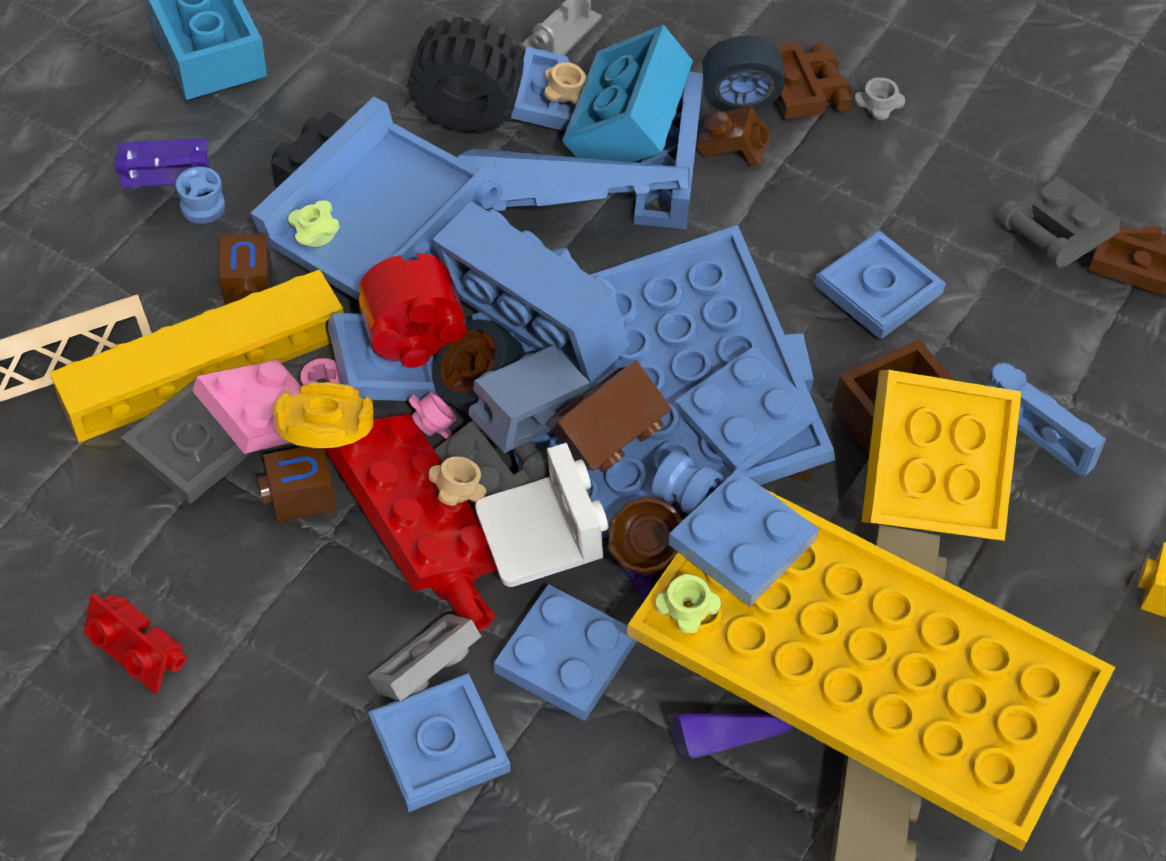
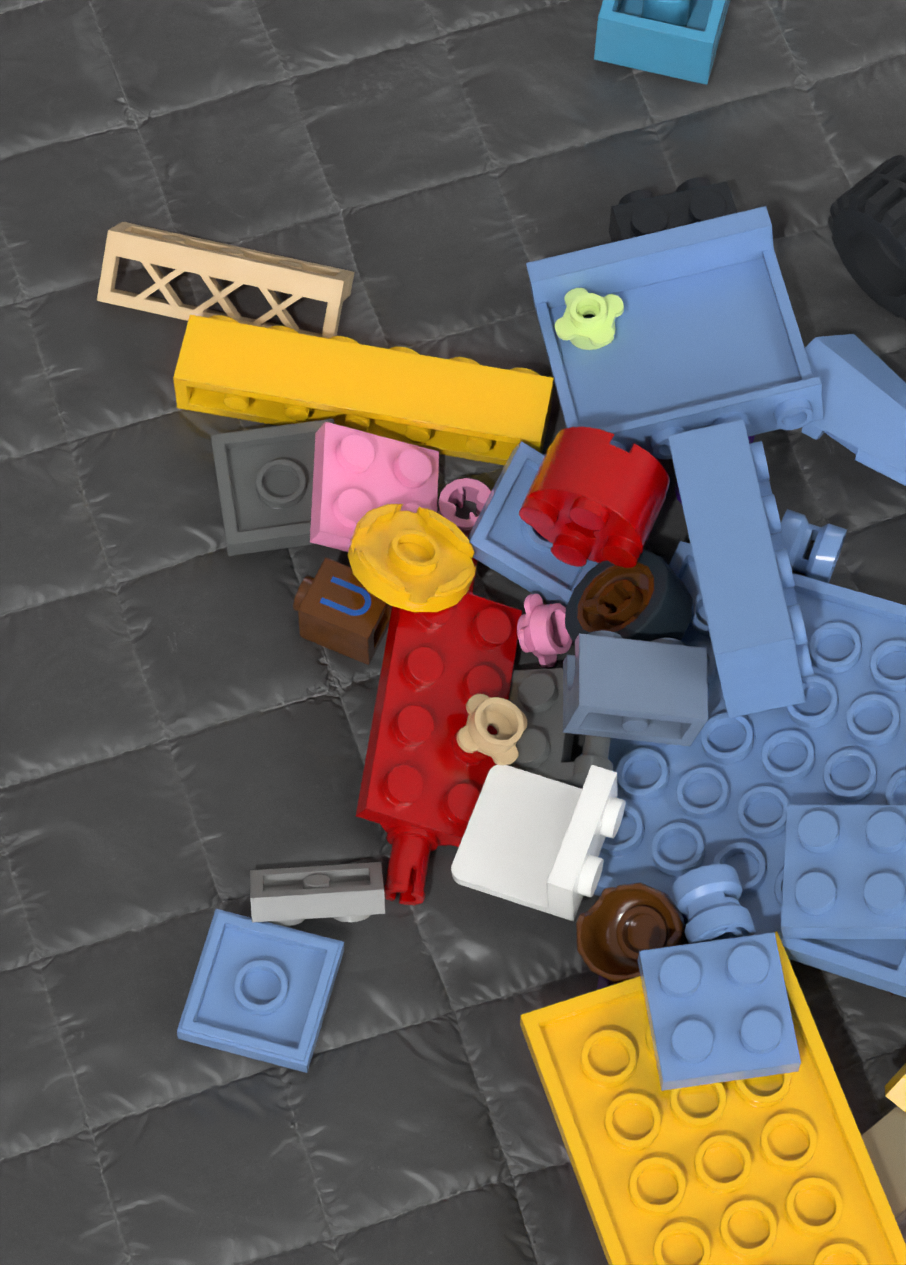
camera: 40 degrees right, 10 degrees up
(118, 631) = (56, 641): red hinge -> none
(159, 161) = (504, 127): dark purple hinge -> none
(200, 195) = (516, 180): medium blue wheel -> none
(244, 265) = (486, 320): reddish brown brick -> none
(565, 652) = (463, 990): medium blue plate -> none
(611, 416) = (697, 774): reddish brown brick -> none
(691, 589) = (598, 1020): yellowish green plate -> none
(712, 732) = (536, 1191): dark purple slope -> none

